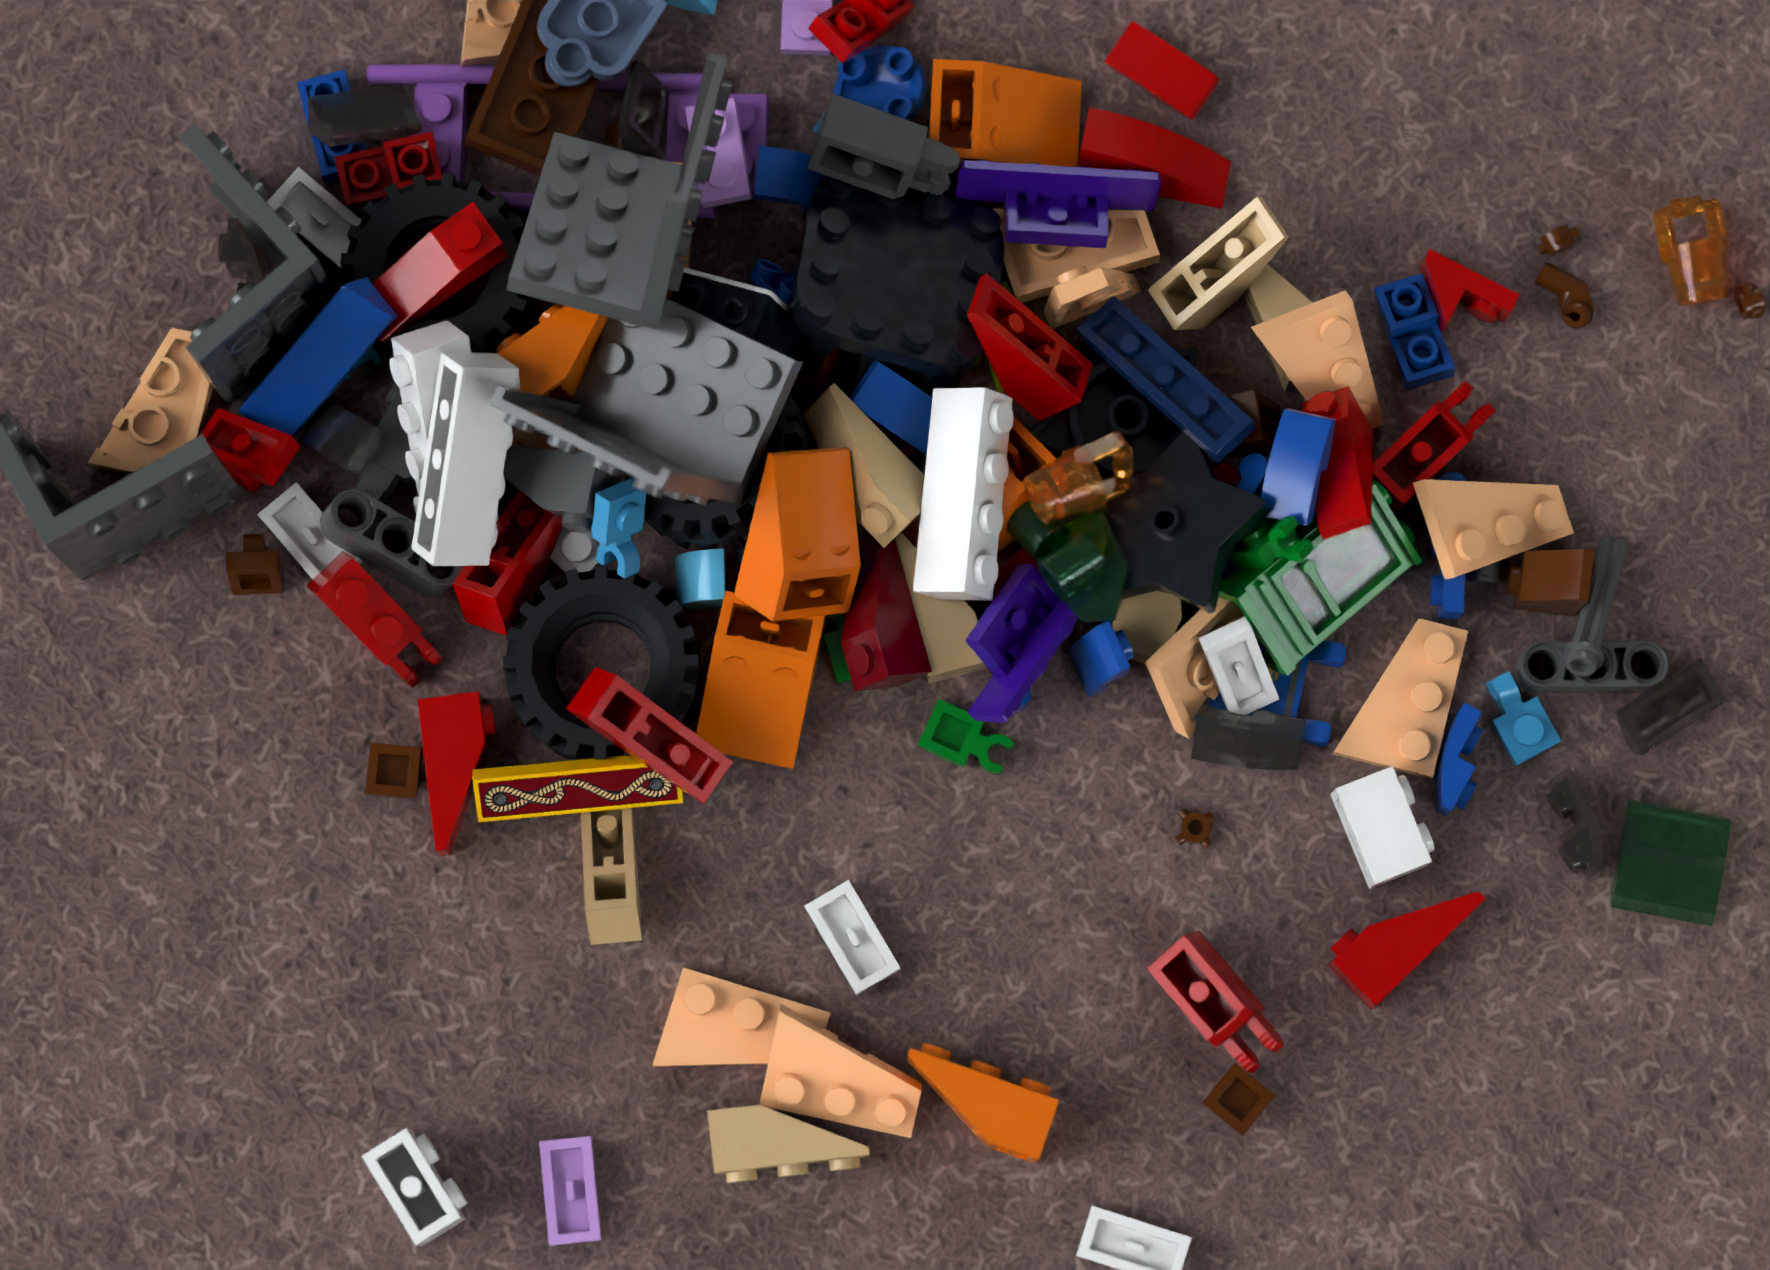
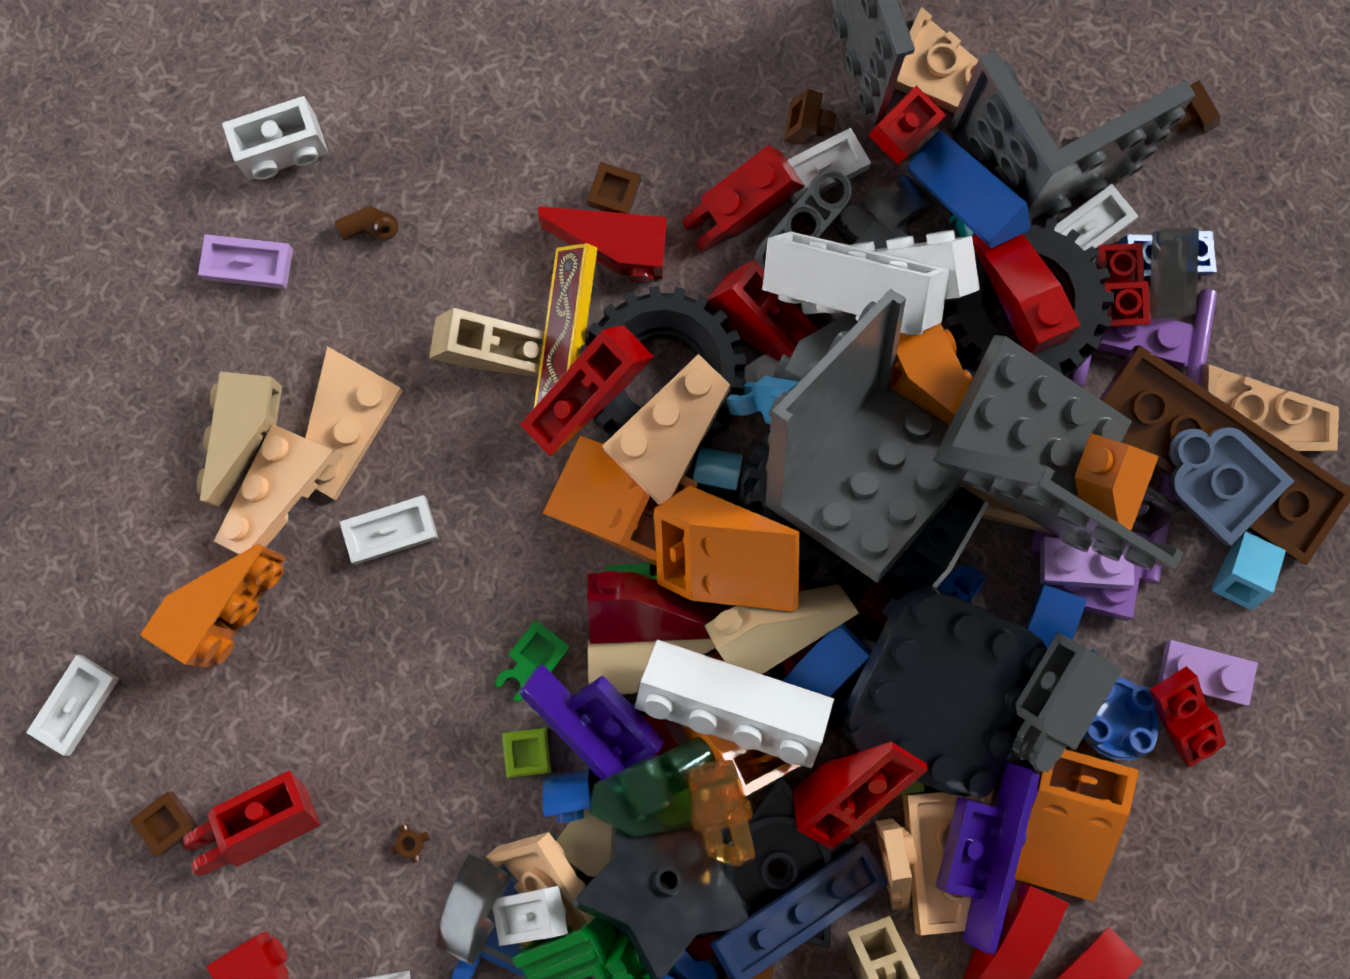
camera: 105 degrees right, 0 degrees up
(152, 122) = (1200, 110): none -> reddish brown tile
(487, 1055) = (368, 220): none -> reddish brown arm
(635, 138) = (1114, 478): none -> orange slope
(675, 633) = (667, 431): none -> light nougat wing
(1066, 723) = (527, 752): none -> lime tile

